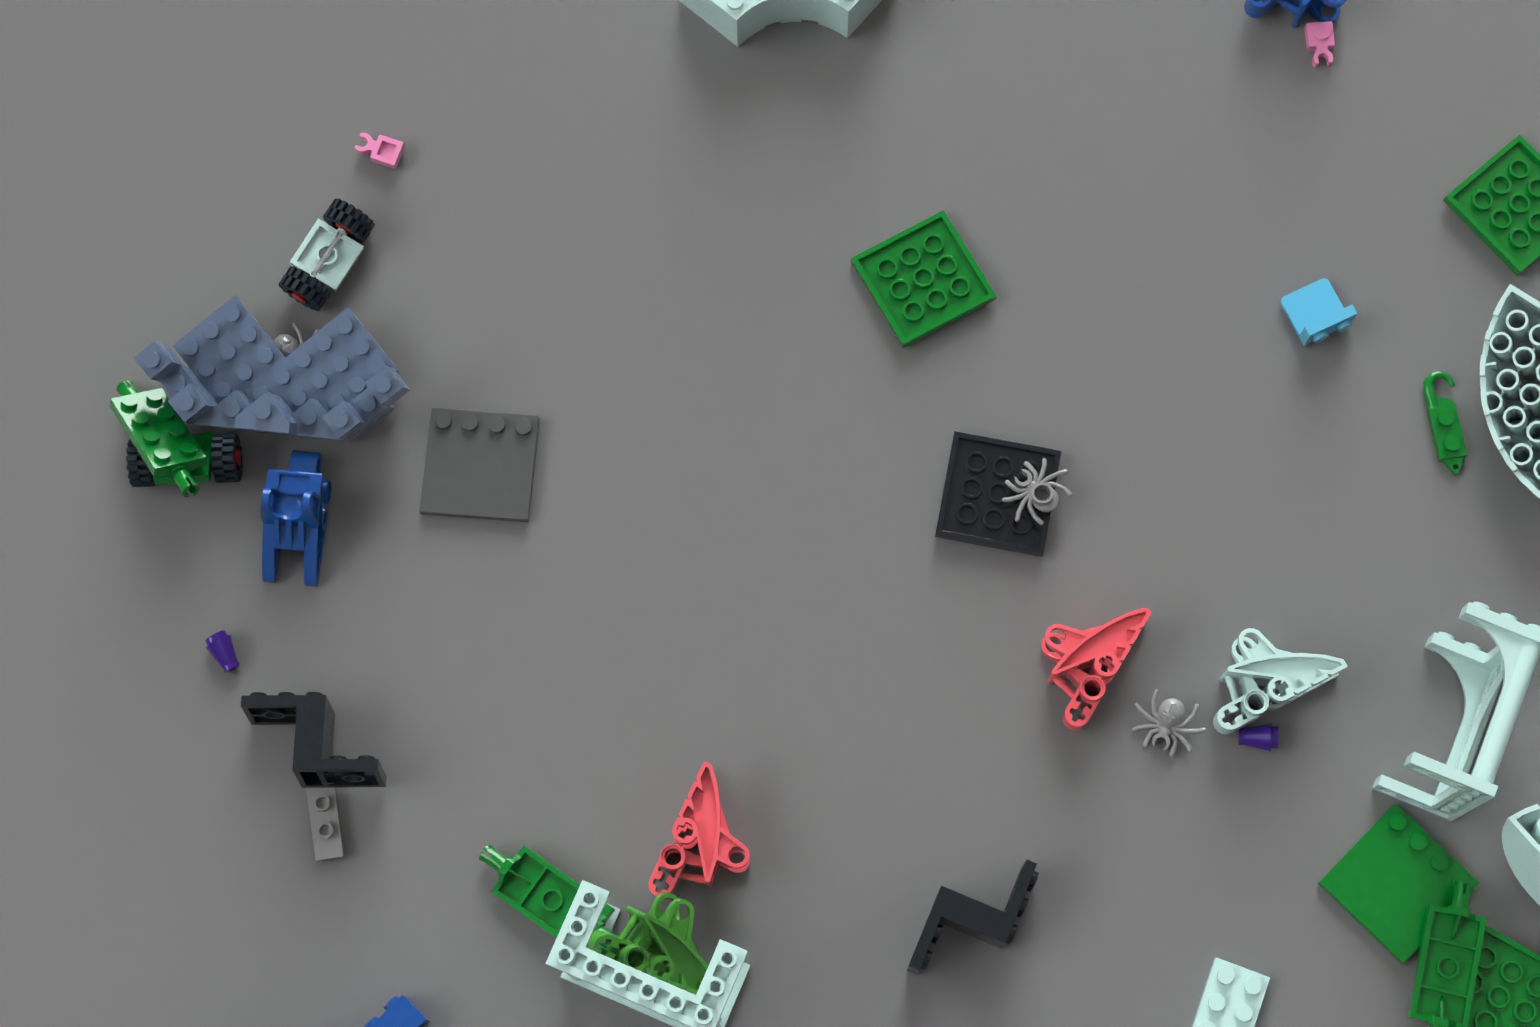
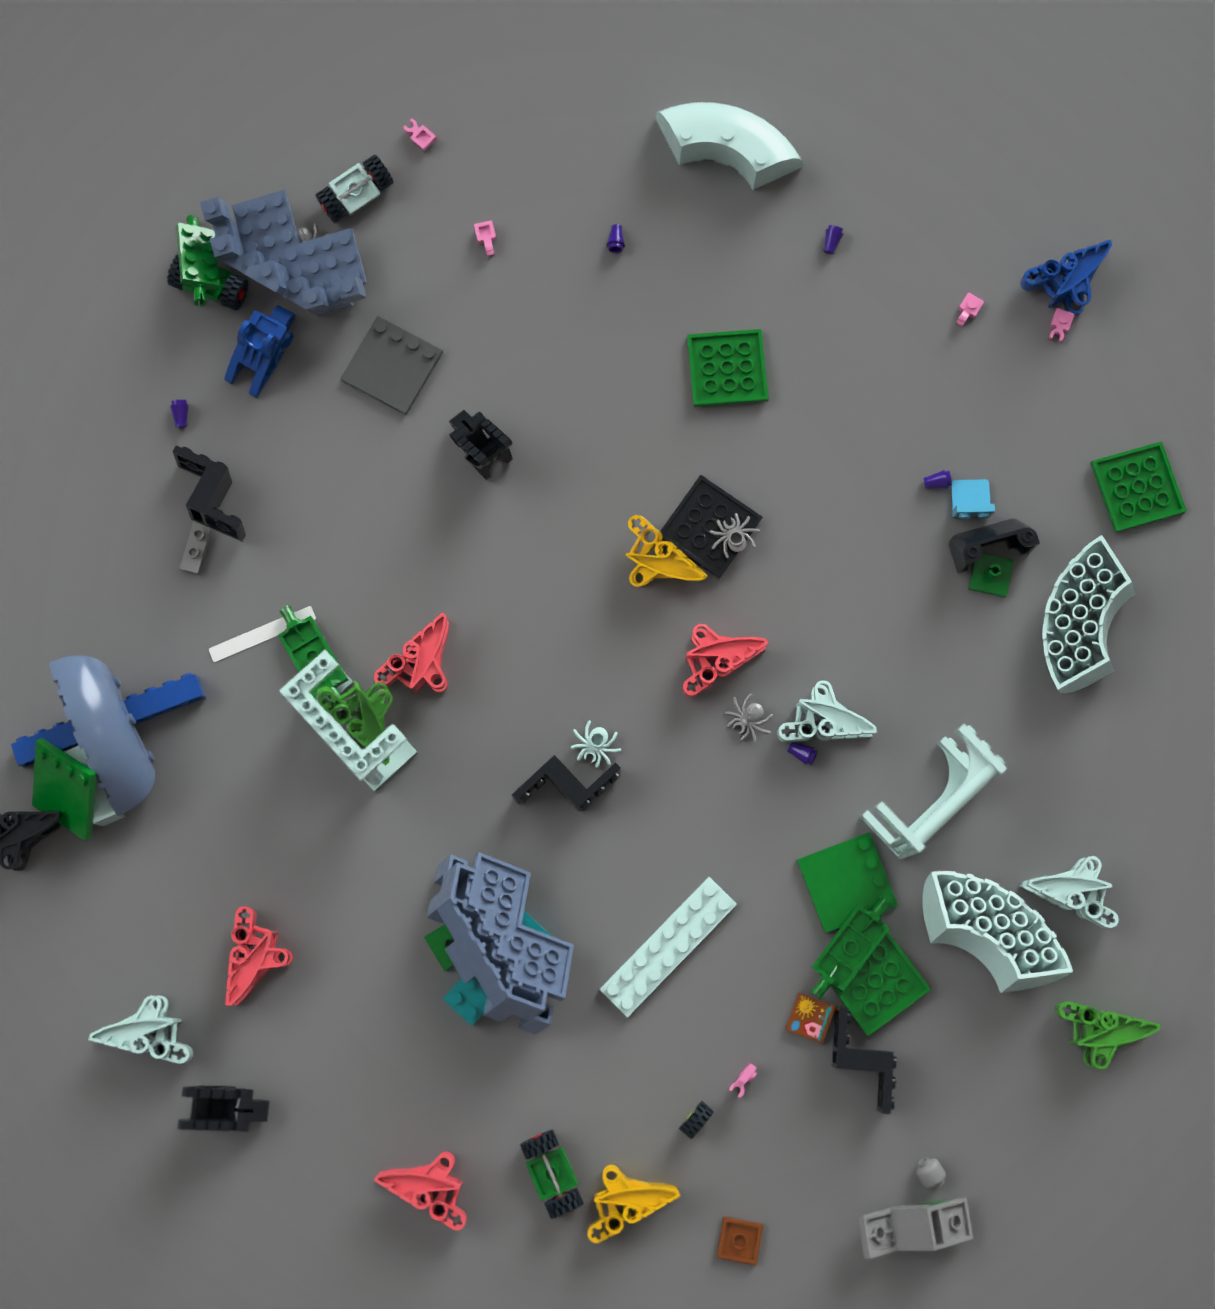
camera: 20 degrees right, 5 degrees up
(460, 906) = (255, 636): none -> white sticker
(527, 241) = (485, 234): none -> bright pink plate
(651, 524) = (480, 450): none -> black piece
(701, 176) = (616, 241): none -> dark purple cone
(964, 571) = (672, 565): none -> yellow piece
(980, 56) = (832, 238): none -> dark purple cone
(983, 848) = (595, 744): none -> light aqua animal
(1196, 70) = (969, 308): none -> bright pink plate
(1263, 305) = (938, 480): none -> dark purple cone
(1343, 373) = (967, 545): none -> black windscreen
(1387, 397) = (991, 575): none -> green tile
(1444, 424) = (1019, 607): green plate -> none

